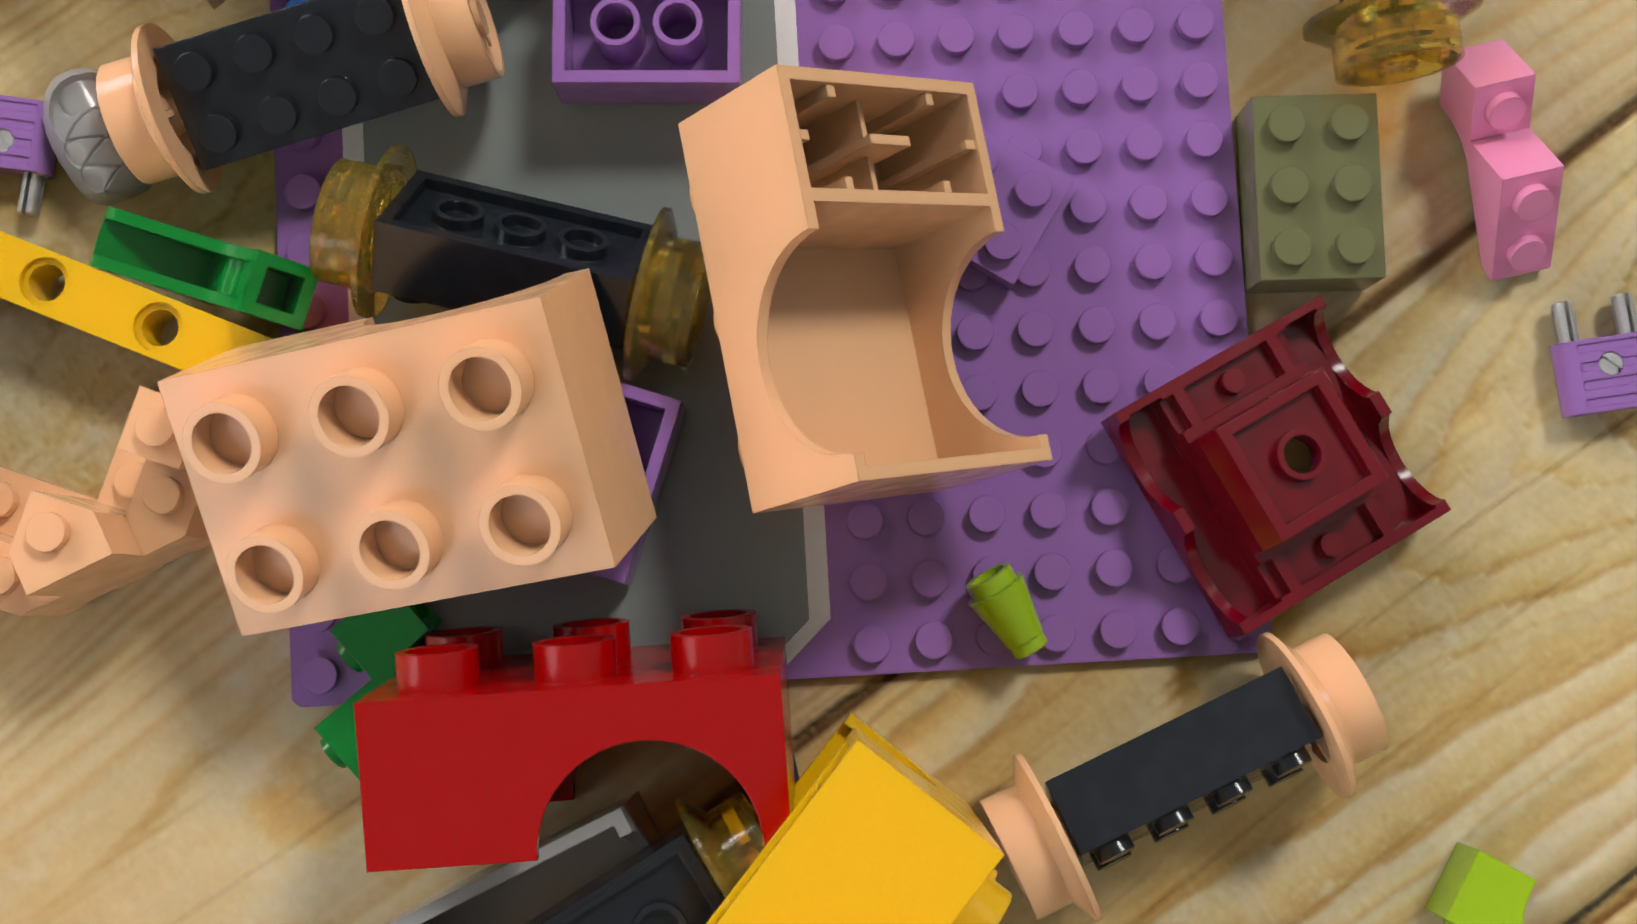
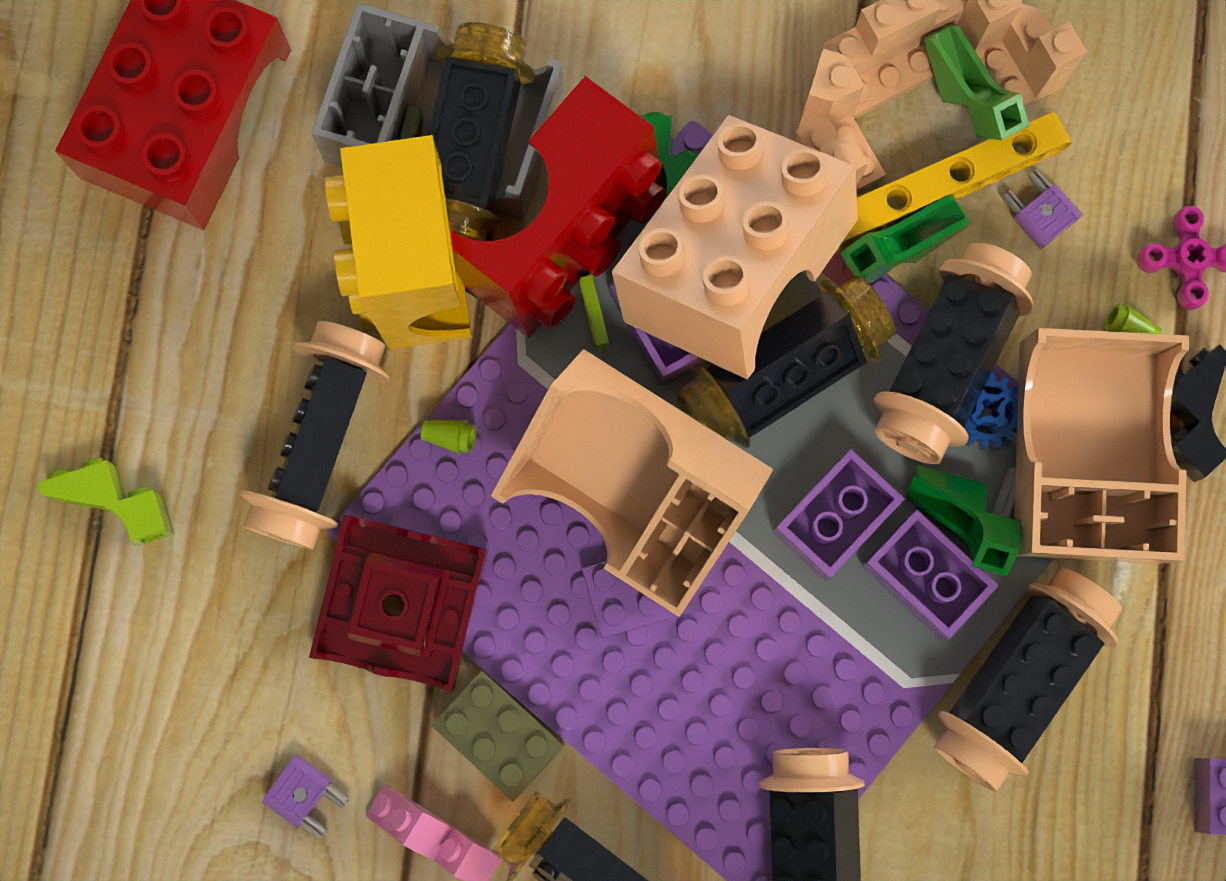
camera: 125 degrees right, 5 degrees down
(82, 141) = (1020, 241): light grey piece -> none
(676, 578) = (593, 313): none -> lime tile

